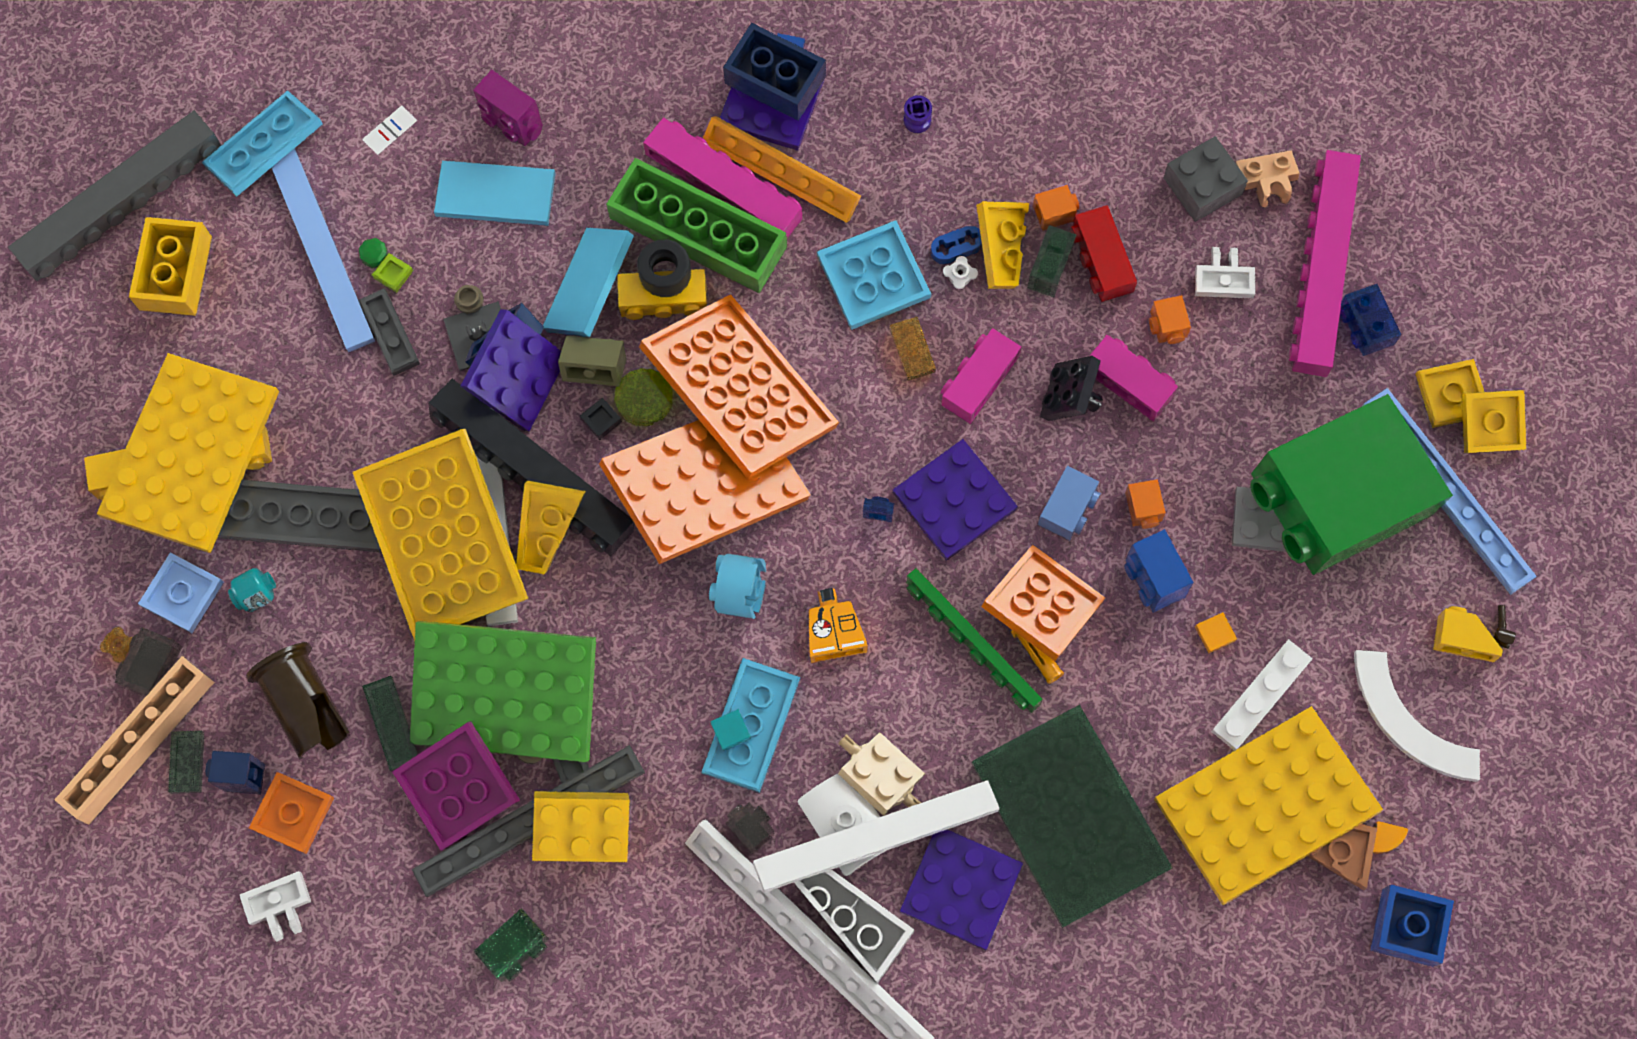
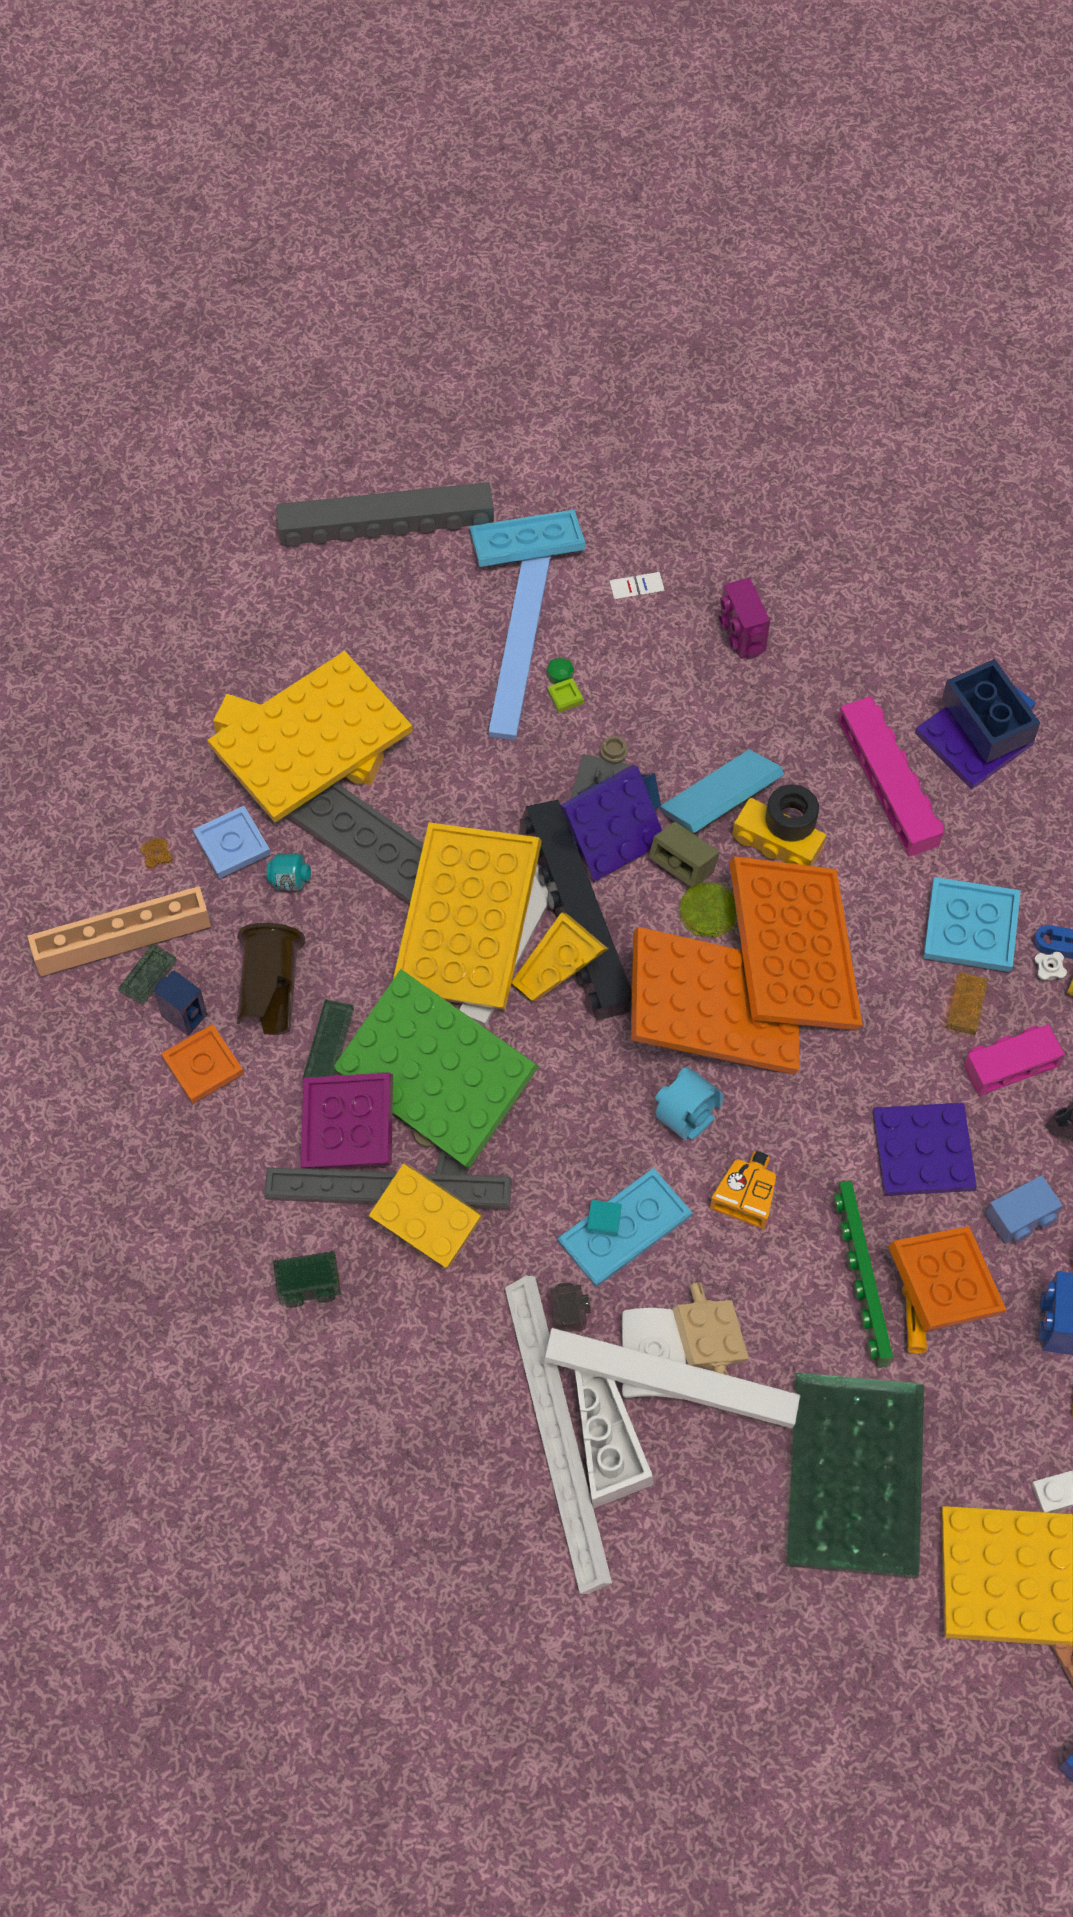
camera: 30 degrees right, 10 degrees down
(147, 662) = (169, 876): clear smoke brick -> none
(170, 266) = (391, 589): yellow brick -> none
(274, 899) = (145, 1123): white hinge -> none
(389, 332) = (532, 739): dark grey tile -> none
(495, 193) = (691, 680): medium azure tile -> none
(600, 418) = (660, 905): black plate -> none
(702, 224) = (847, 797): bright green brick -> none
(781, 169) = (947, 795): light orange plate -> none
(878, 509) = (850, 1116): clear blue plate -> none
(961, 888) = (718, 1475): dark purple plate -> none

